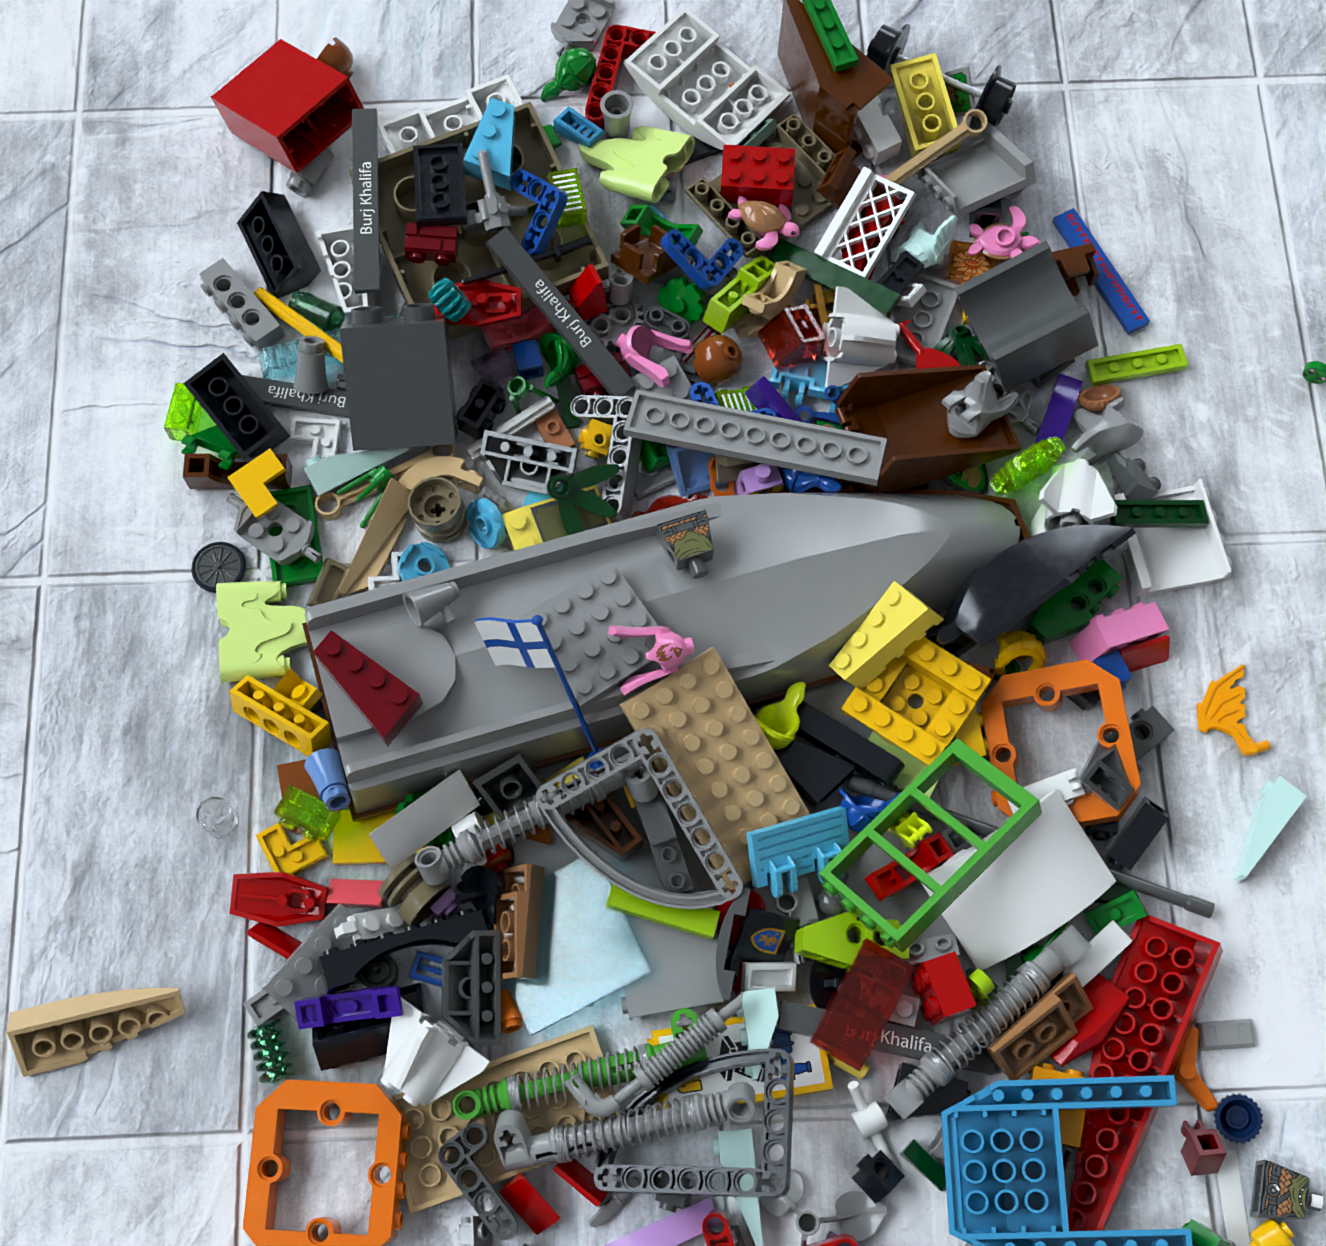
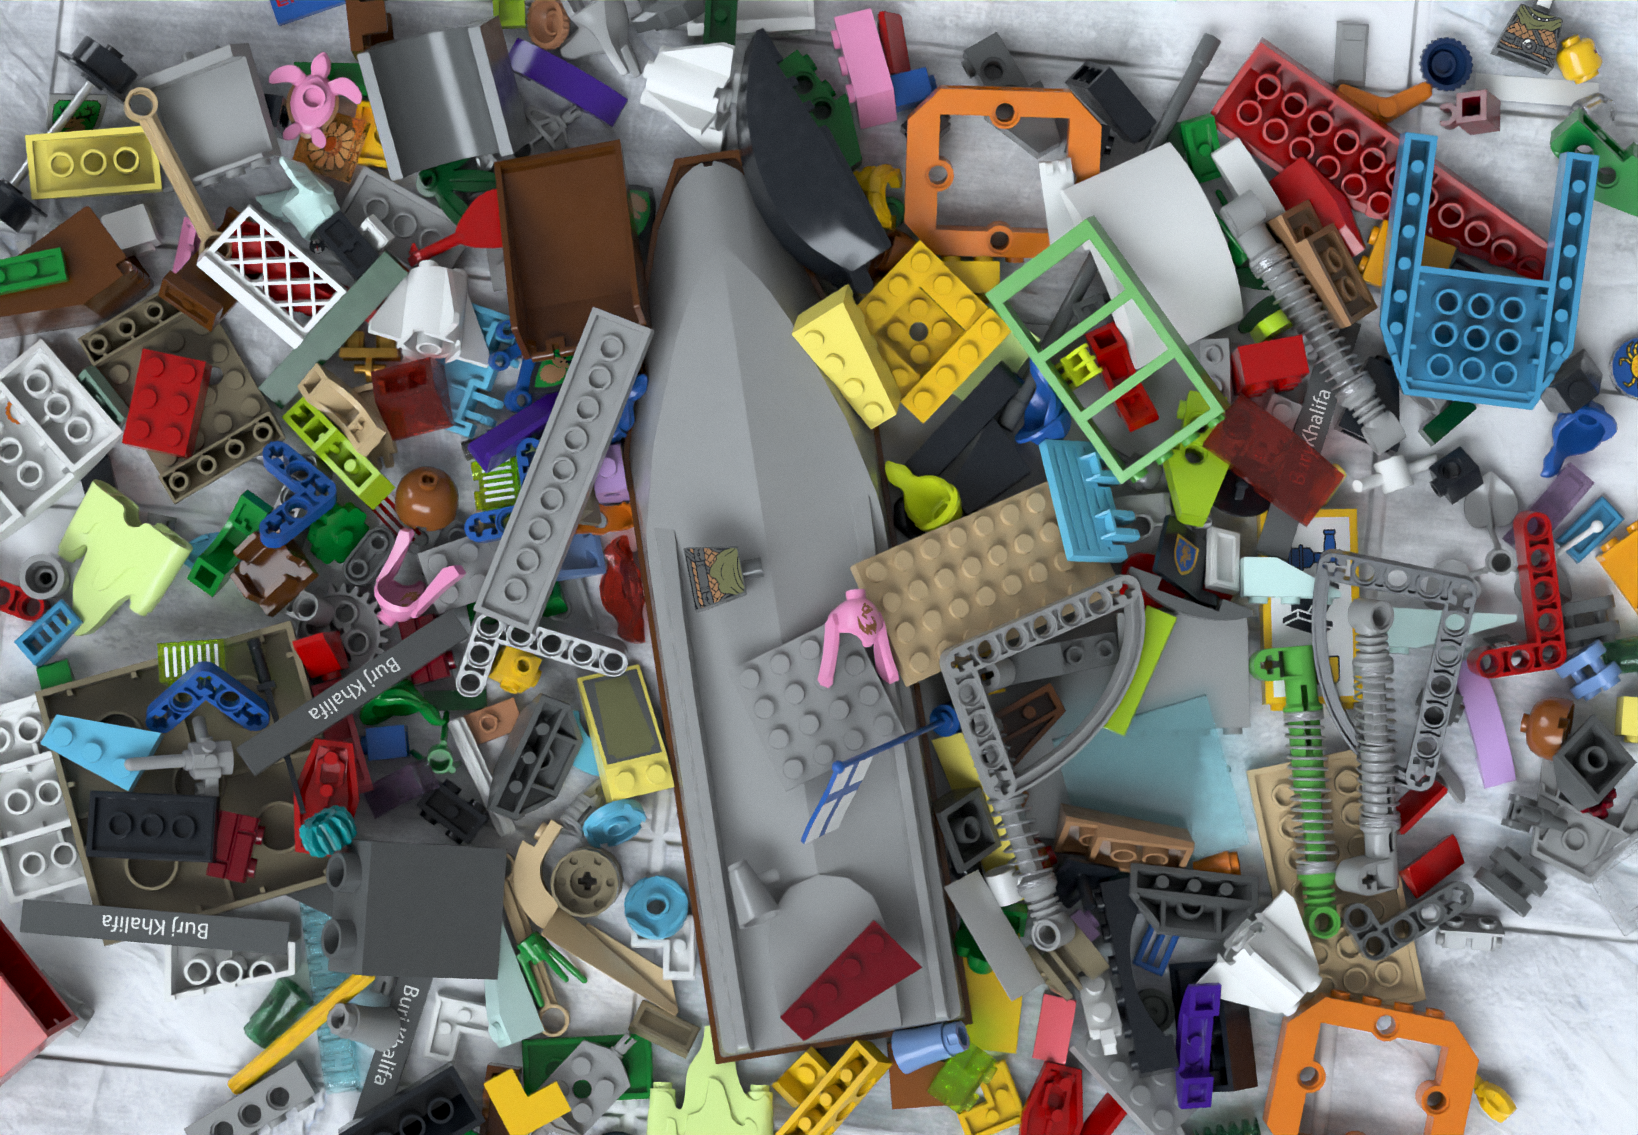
camera: 80 degrees left, 15 degrees up
(278, 244) = (167, 1055): black slope -> none
(573, 494) = (594, 707): dark green plant -> none
(659, 1065) = (1316, 700): light grey piece -> none
(765, 221) = (239, 405): animal -> none
(976, 406) = (559, 185): light grey piece -> none
(1027, 466) = (640, 135): clear neon green gear -> none
(1108, 779) = (1060, 127): dark grey slope -> none

